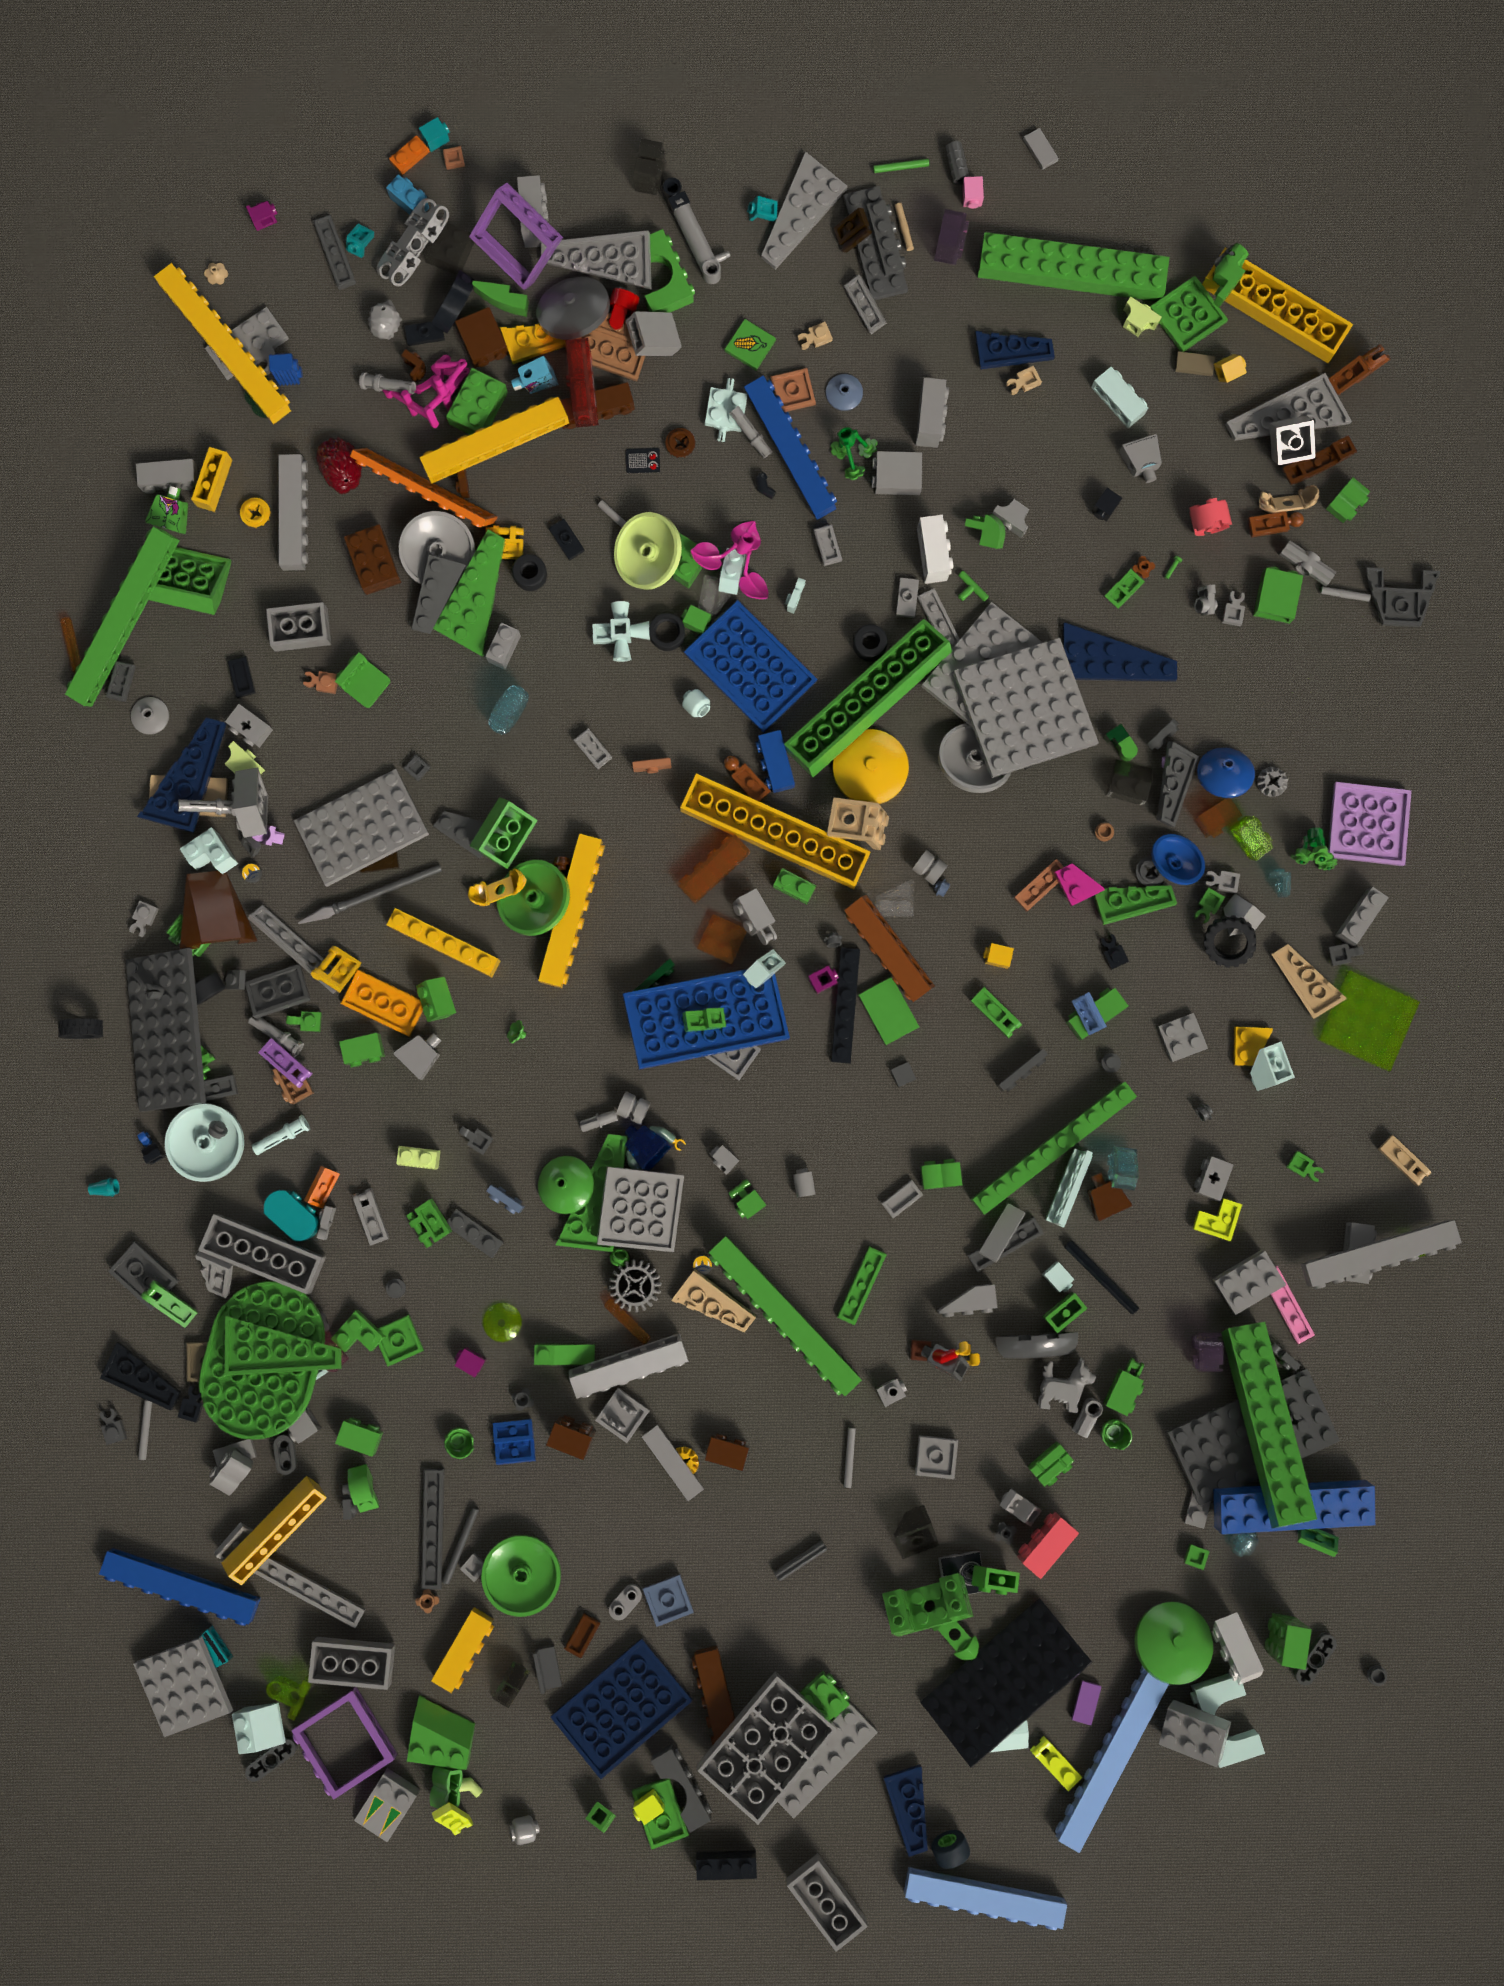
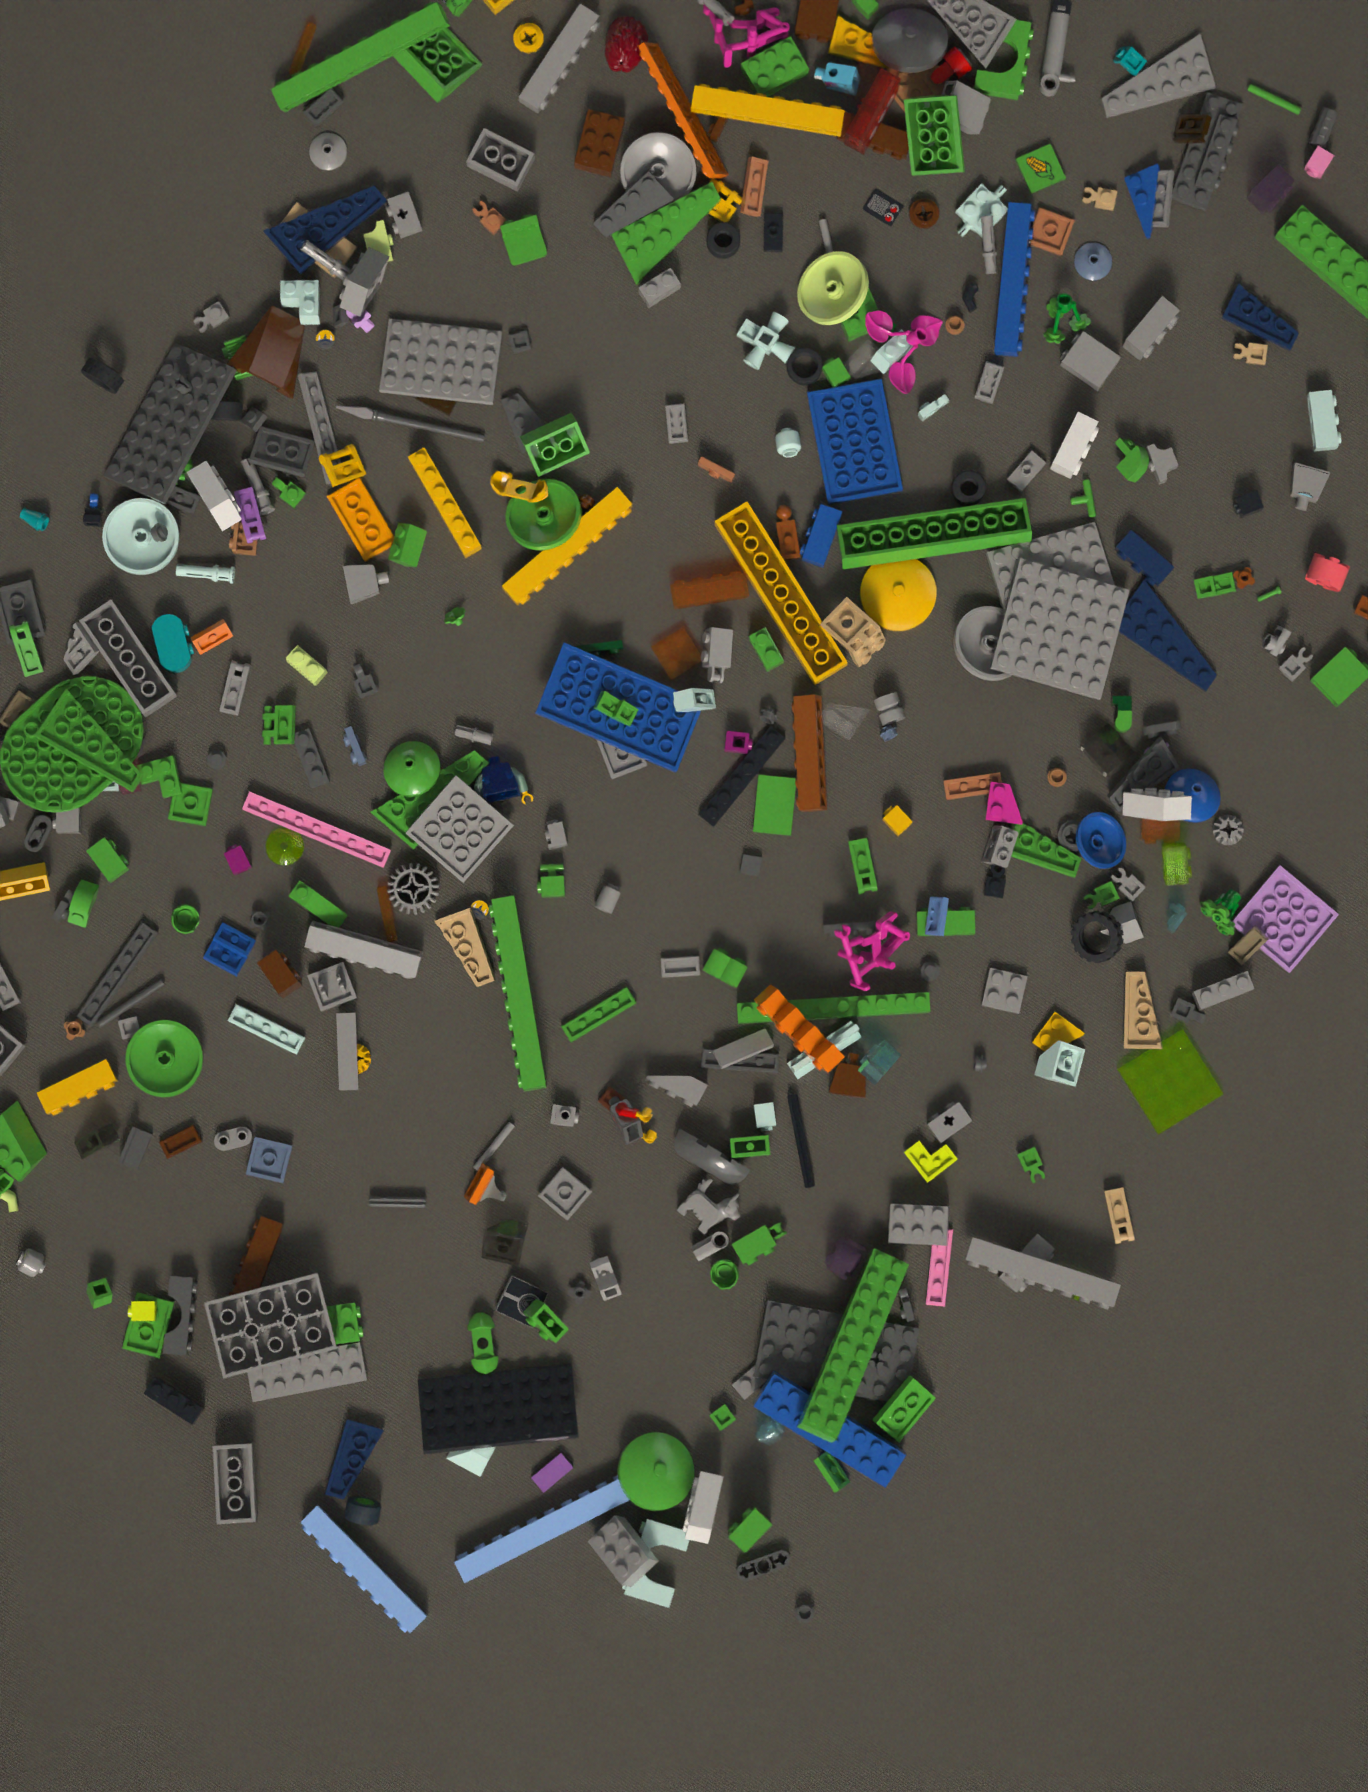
camera: 35 degrees right, 0 degrees up
(241, 677) = (425, 169): black tile -> none
(243, 1067) = (213, 494): none -> white brick
(326, 1216) = (198, 665): light grey plate -> none
(362, 1049) = (319, 546): bright green brick -> none
(508, 709) = (627, 344): clear light blue gear -> none
(519, 1290) = (316, 829): none -> bright pink plate
(525, 511) = (754, 186): none -> nougat plate
(590, 1488) = (266, 1029): none -> light aqua tile
(619, 1257) = (415, 857): bright green plate -> none
(621, 1708) = (173, 1220): dark blue plate -> none
(633, 1108) = (509, 743): light grey wheel -> none
(646, 368) = (934, 134): none -> bright green slope
(727, 1452) = (397, 1073): reddish brown brick -> none
(767, 517) = (954, 325): none -> medium nougat plate
(847, 308) = (1143, 190): none -> blue wing
(865, 1499) = (483, 1186): none -> orange piece
(904, 227) = (1240, 153): tan piece -> none
(907, 1608) = (456, 1301): bright green plate -> none
(937, 615) = (1041, 505): light grey tile -> none
(1042, 1187) = (798, 1029): none -> orange brick
(1047, 1544) = (606, 1321): coral brick -> none
(1051, 1464) = (654, 1262): bright green brick -> none
(1052, 605) = (1143, 559): none -> dark blue brick
(1056, 1764) = (494, 1504): neon yellow plate -> none
(1062, 1076) = (879, 953): none -> dark pink piece
(1098, 920) = (1000, 846): none -> light grey bracket
(1207, 798) = (1157, 805): none -> white brick
(1342, 1446) = (904, 1408): none -> bright green plate
(1356, 865) = (1248, 945): none -> dark tan tile

